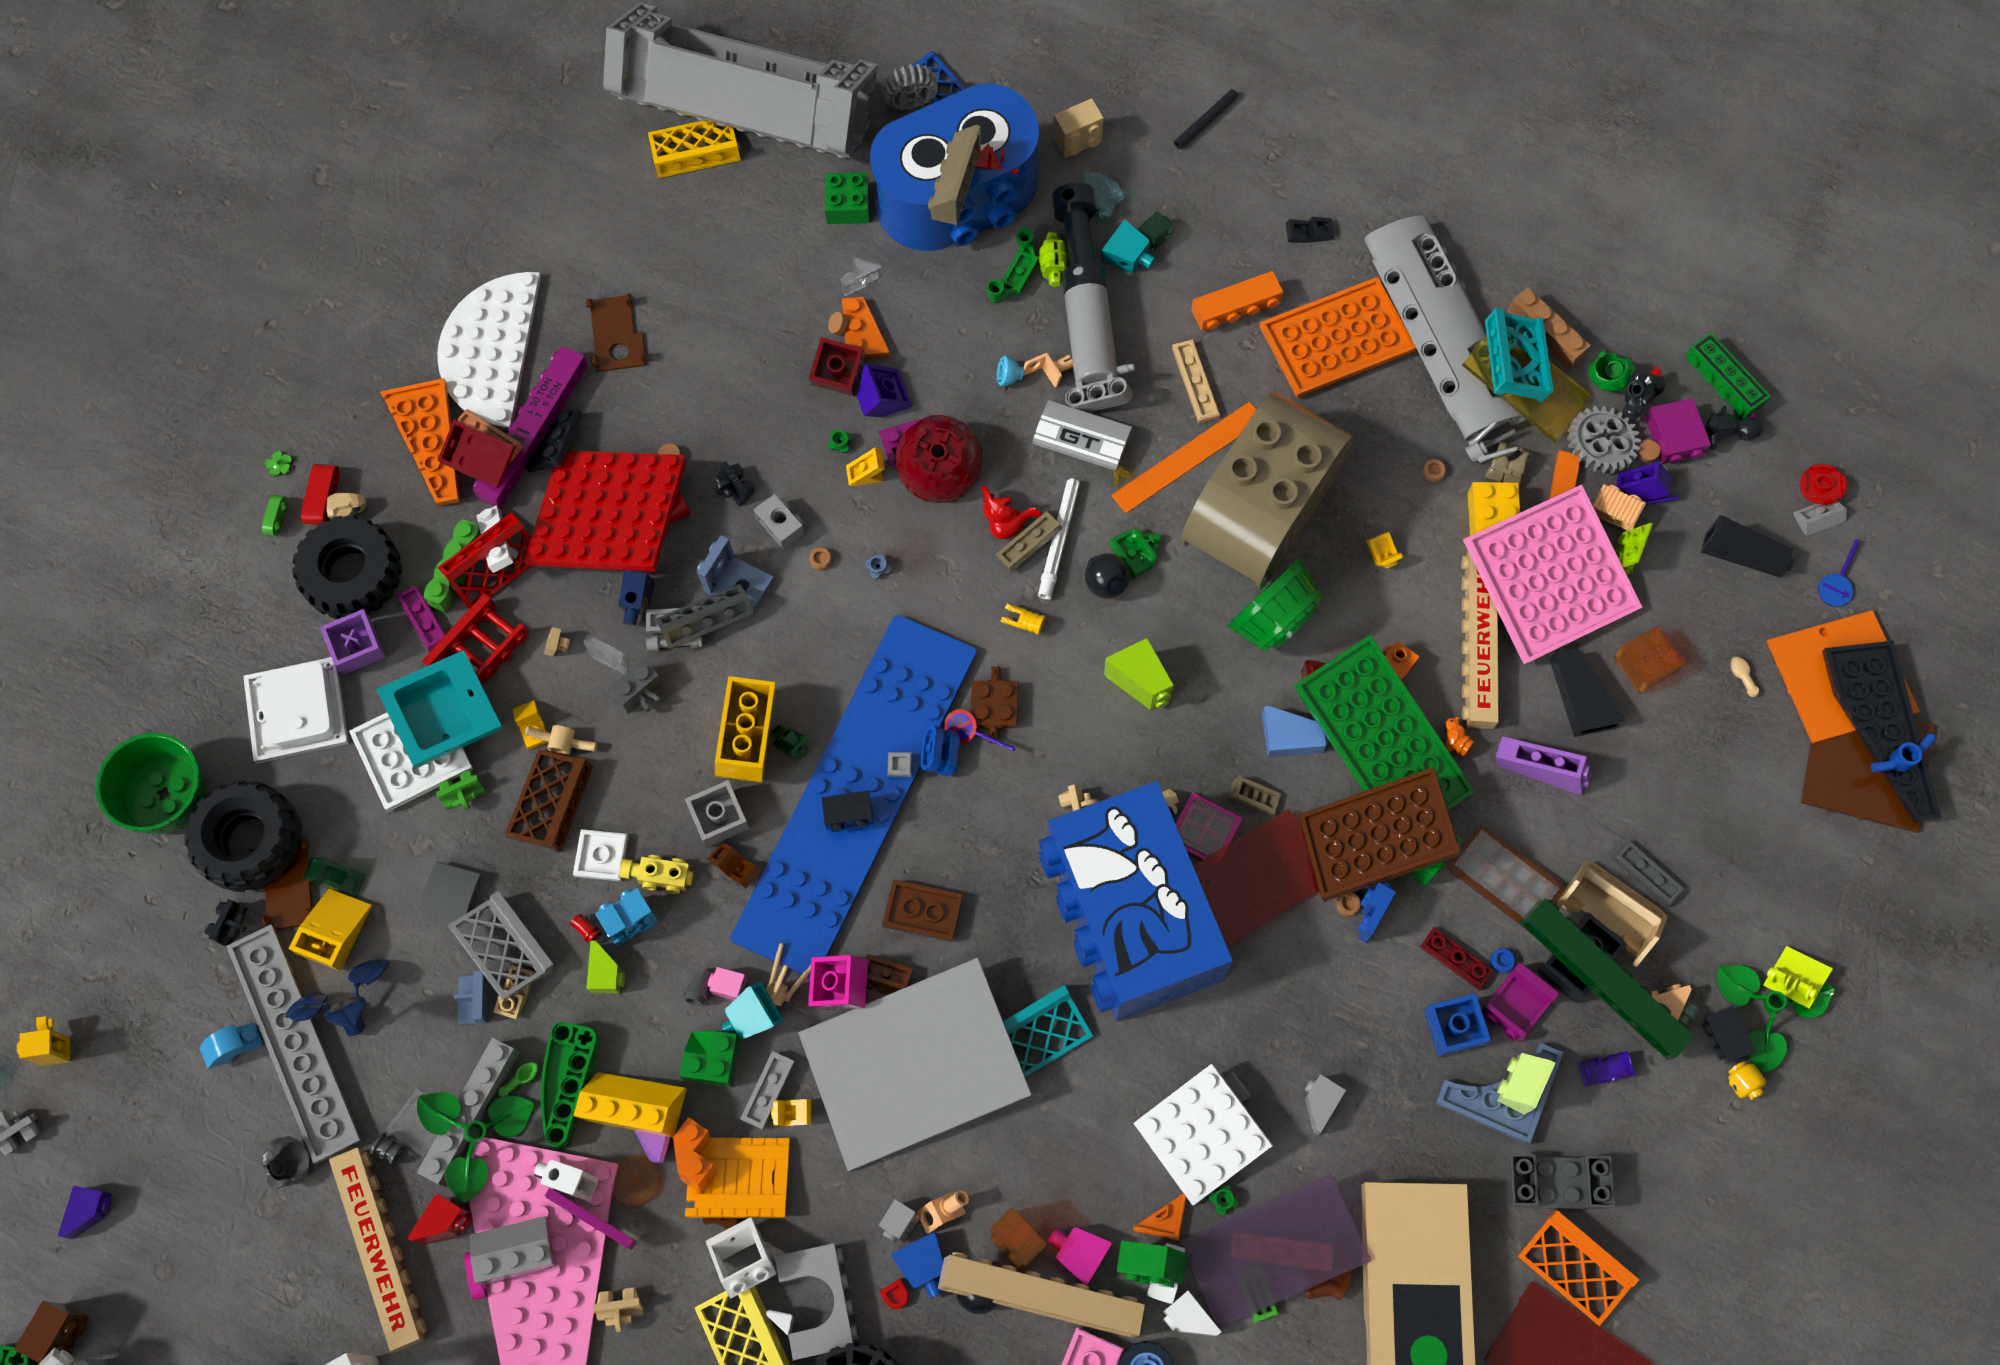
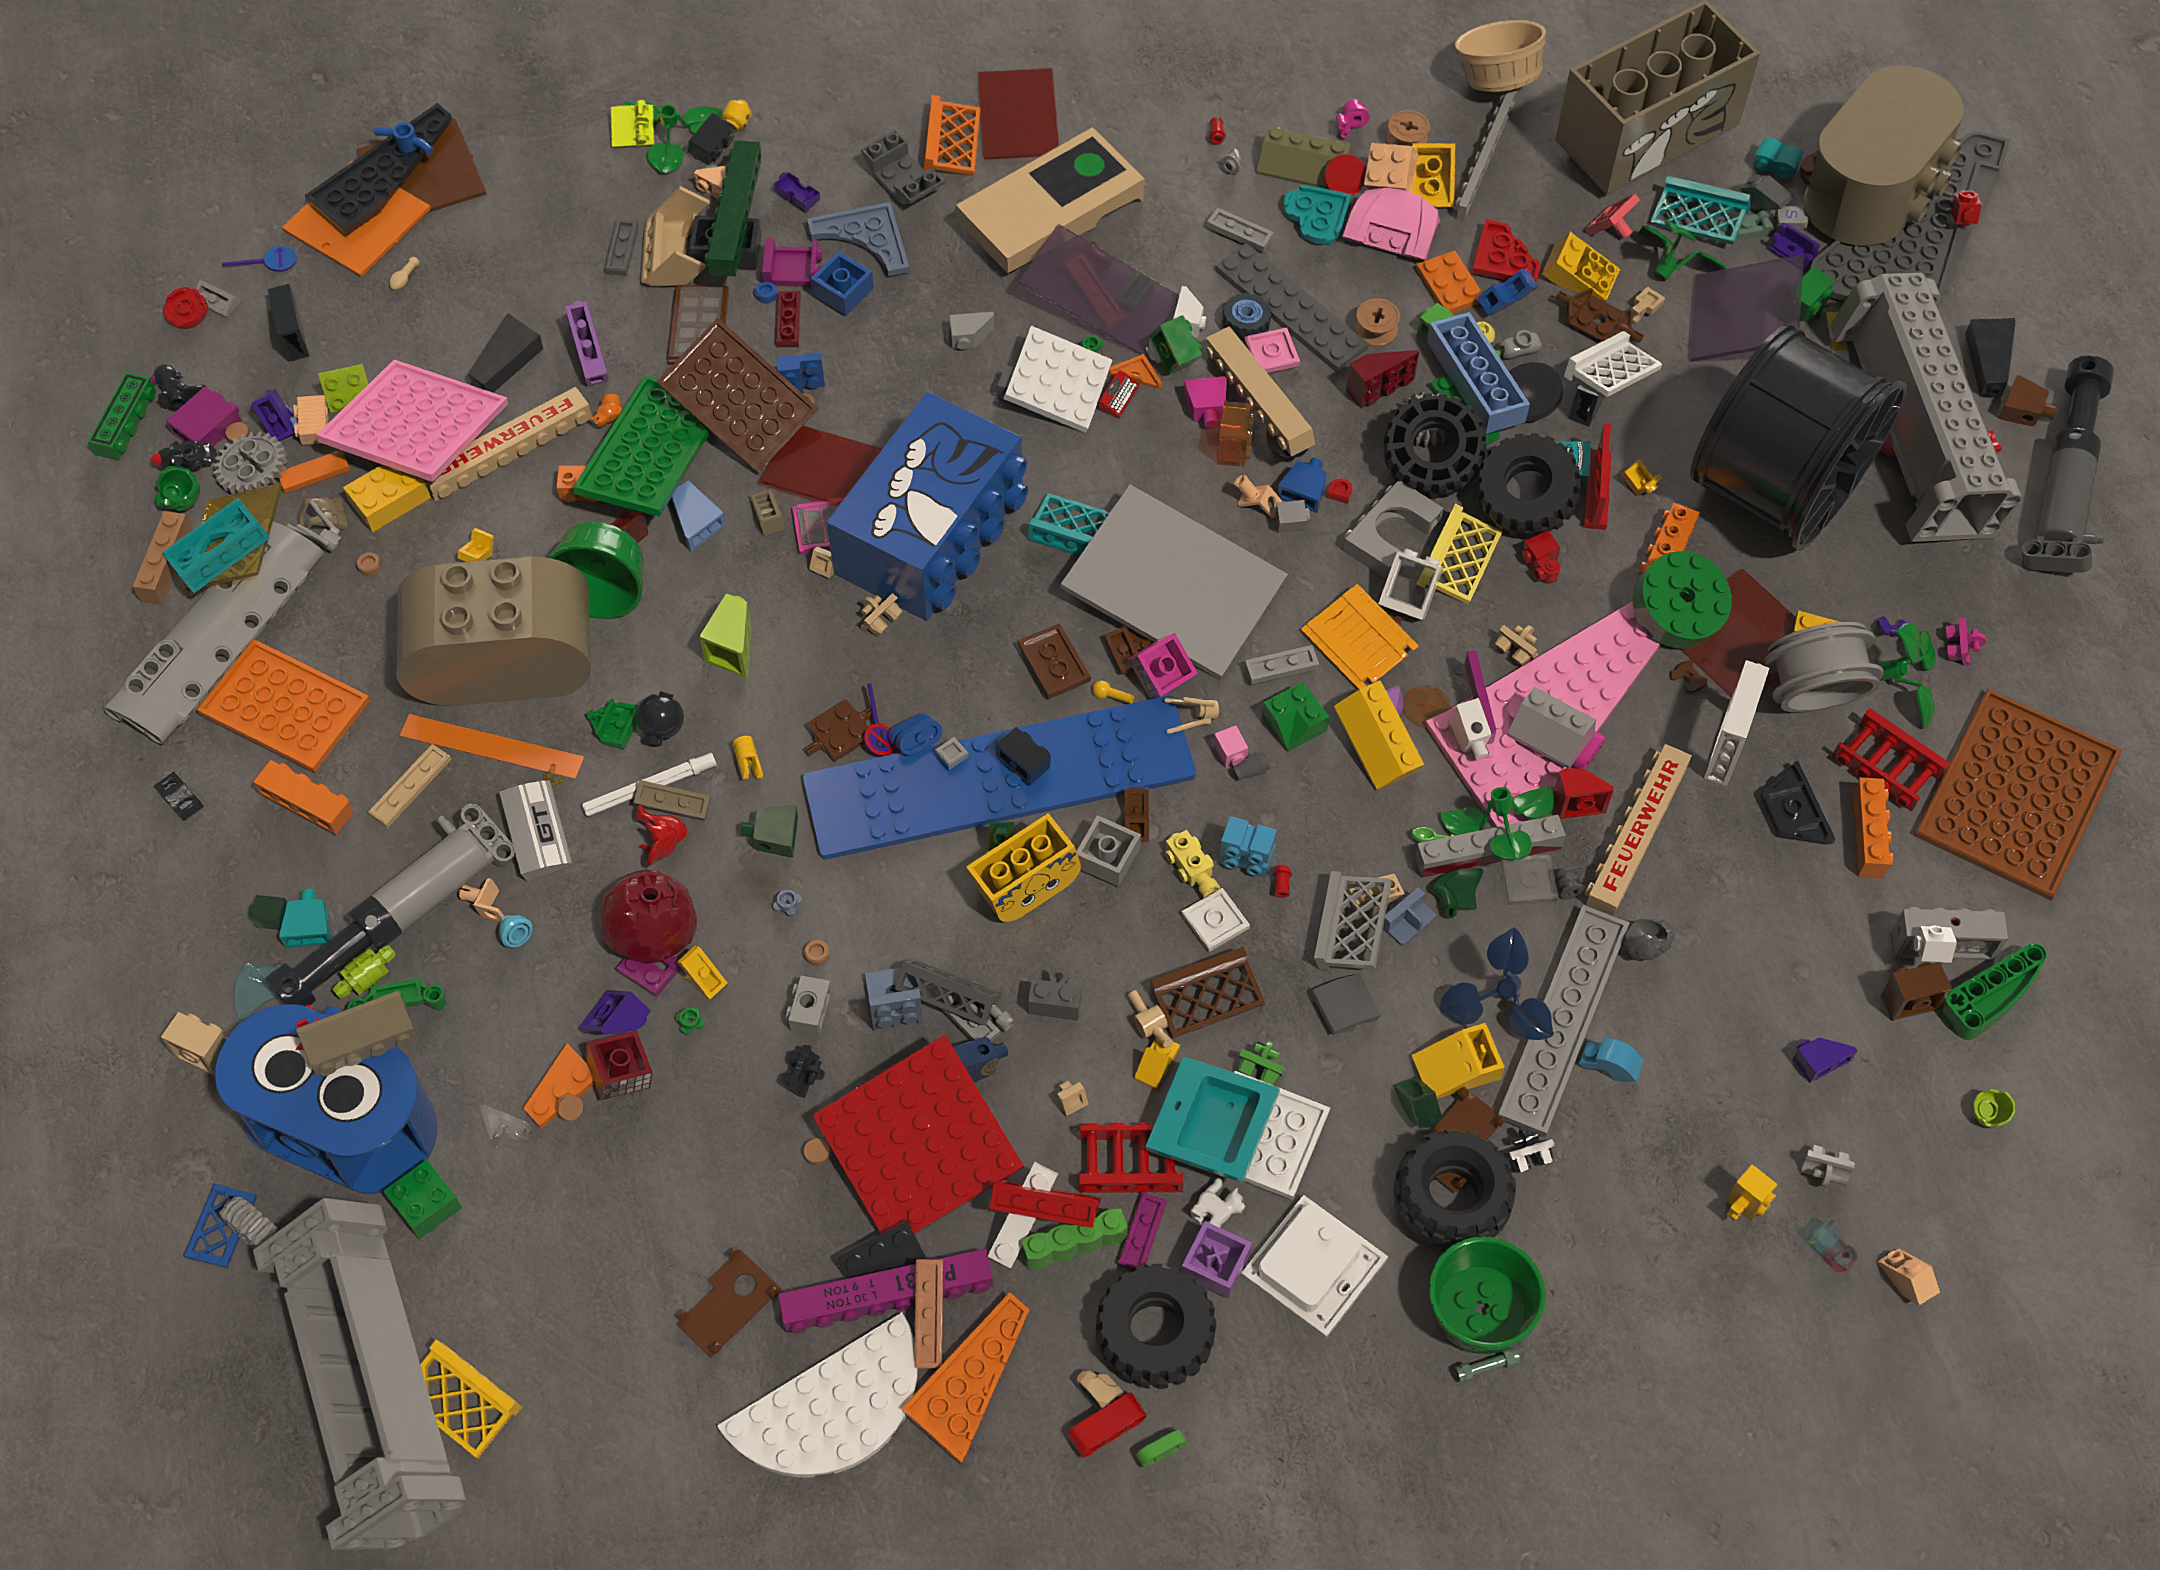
camera: 130 degrees left, 10 degrees down
(278, 463) = (1108, 1501): bright green plant -> none
(389, 673) = (1216, 1209): none -> white animal
(460, 1056) = (1458, 890): none -> dark green arm
(476, 453) = (957, 1286): dark red slope -> none
(560, 1072) = (1402, 808): green beam -> none
(603, 973) = (1303, 838): lime slope -> none
(607, 655) = (1048, 1033): clear tile -> none
(688, 1145) = (1380, 668): orange brick -> none
(751, 1012) = (1238, 708): torso -> none
(782, 1320) = (1423, 539): white slope -> none
(791, 1112) = (1281, 635): yellow bracket -> none
(868, 931) = (1102, 690): none -> yellow bar
(943, 594) = (773, 830): none -> dark green torso
(1150, 1181) = (1118, 394): none -> slope
(1205, 119) = (104, 957): black piece -> none
(1525, 1082) = (851, 214): yellowish green slope -> none
(1648, 659) = (439, 330): clear orange brick -> none

